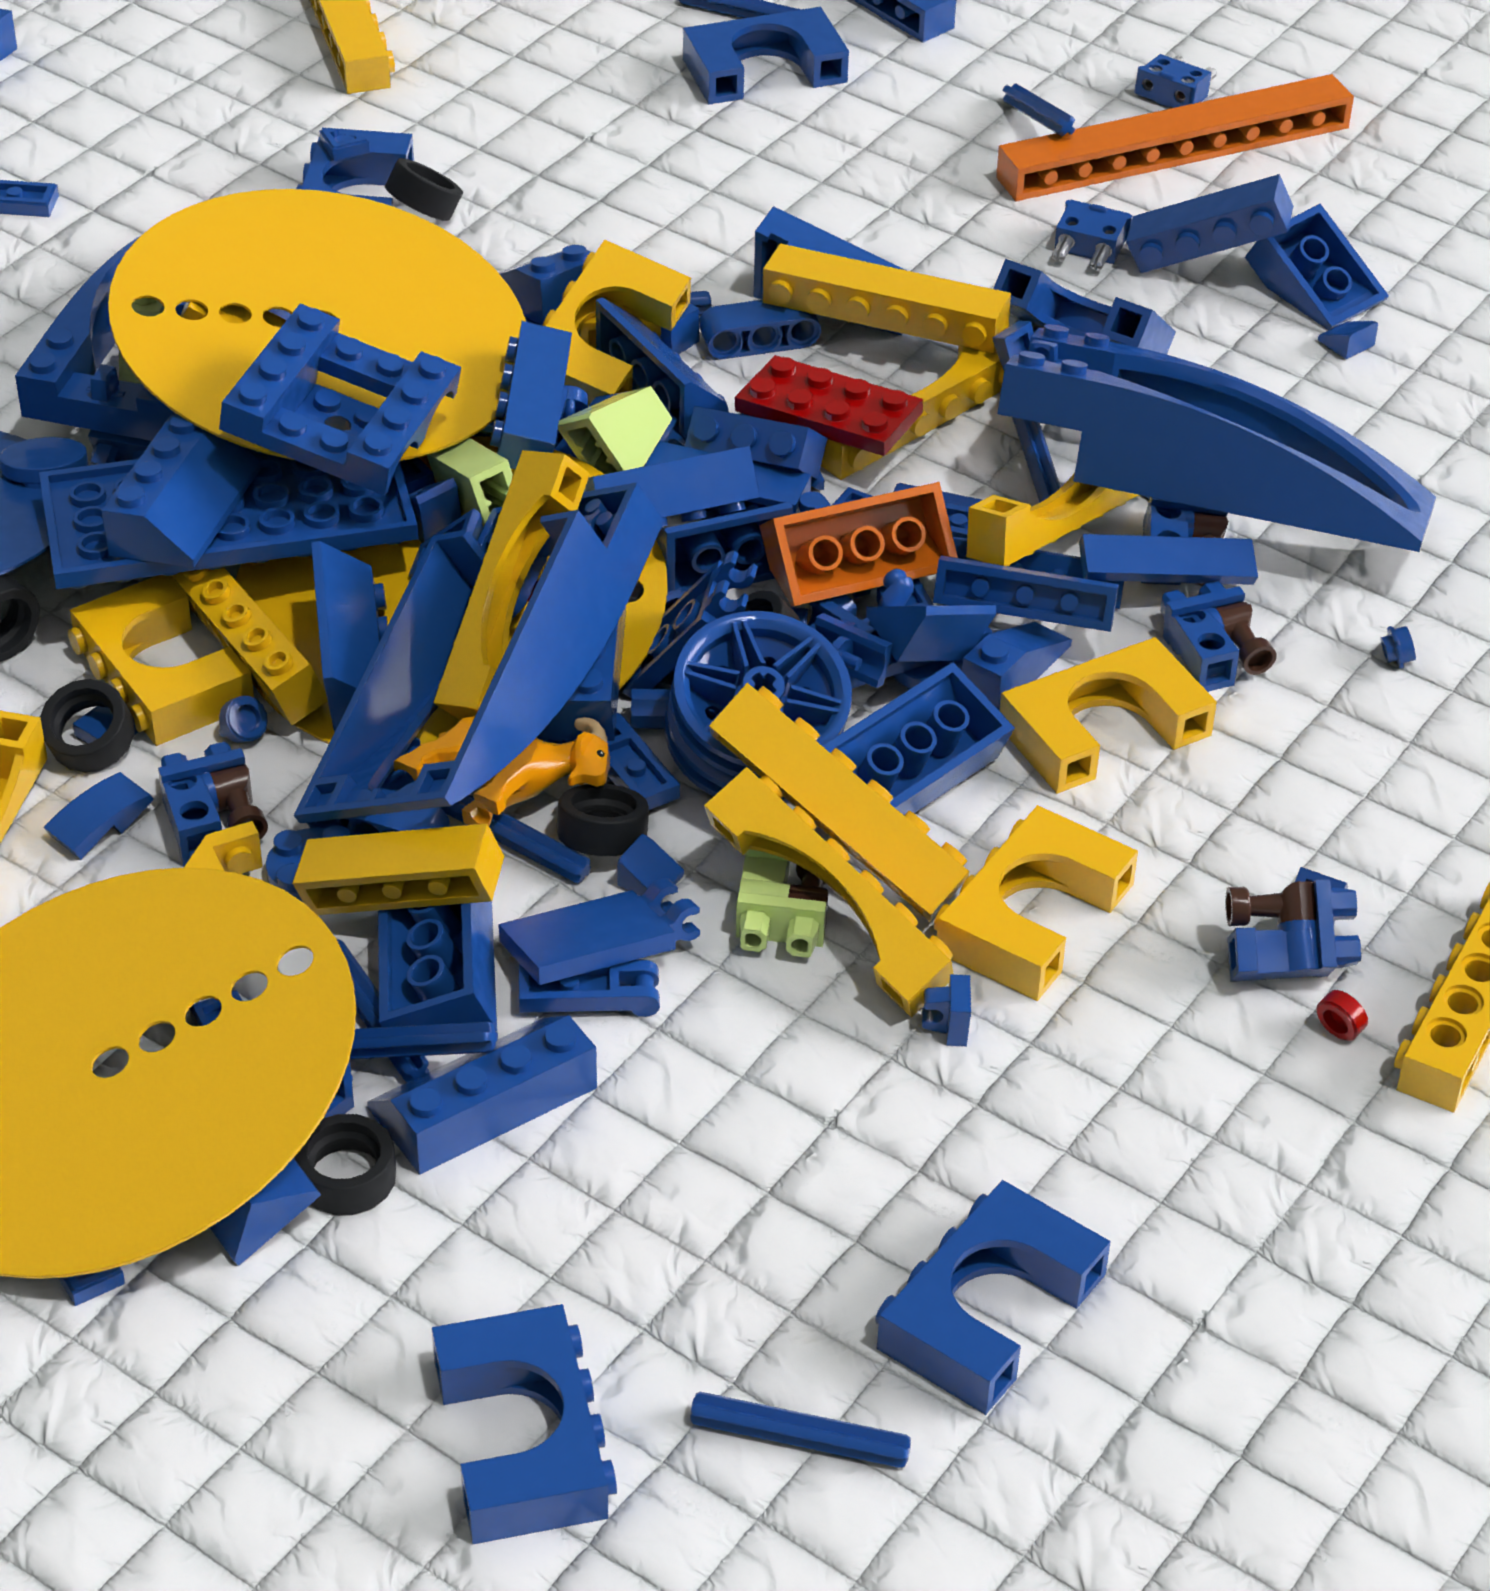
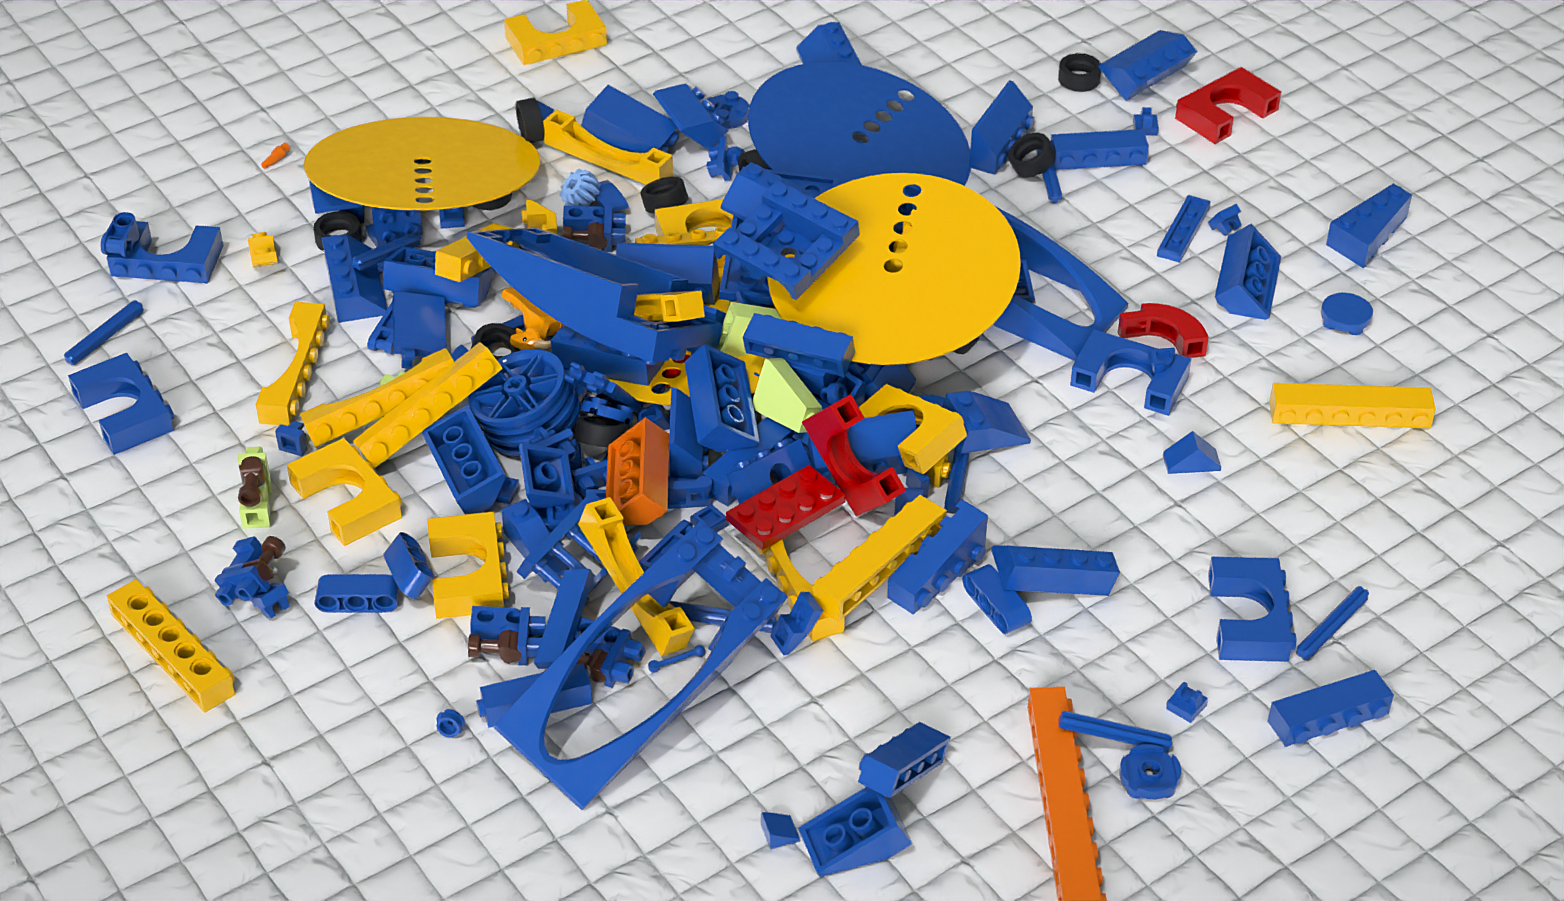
camera: 110 degrees right, 0 degrees up
(86, 118) = (1248, 274): none -> blue slope
(95, 1378) = (276, 155): none -> orange piece
(97, 817) = (580, 188): none -> light blue gear
(140, 42) = (1346, 313): none -> blue tile
(245, 157) = (1168, 323): none -> red arch
(423, 189) = (1122, 381): black tyre -> none
(438, 1272) = (262, 250): none -> yellow slope
(504, 128) = (1191, 455): none -> blue slope
(557, 1455) = (120, 235): none -> blue piece
(726, 326) = (830, 436): none -> red arch
(796, 176) = (1056, 570): none -> blue slope
(860, 1062) = (281, 399): none -> yellow arch
(874, 224) = (1001, 606): none -> blue beam
(897, 591) = (580, 475): blue arm -> none
(939, 86) = (1187, 702): none -> blue tile
(1045, 302) = (867, 657): blue arch -> none
(1072, 94) = (1148, 786): none -> blue plate
(1091, 233) = (958, 719): blue piece -> none
(1110, 999) = (255, 488): none -> hips
(1162, 756) = (408, 565): none -> blue beam
(1173, 81) = (1149, 845): blue piece -> none
(1237, 814) = (356, 593): none -> blue beam
(1306, 579) = (499, 697): none -> blue brick
(1342, 1015) = (191, 582): red tile -> none

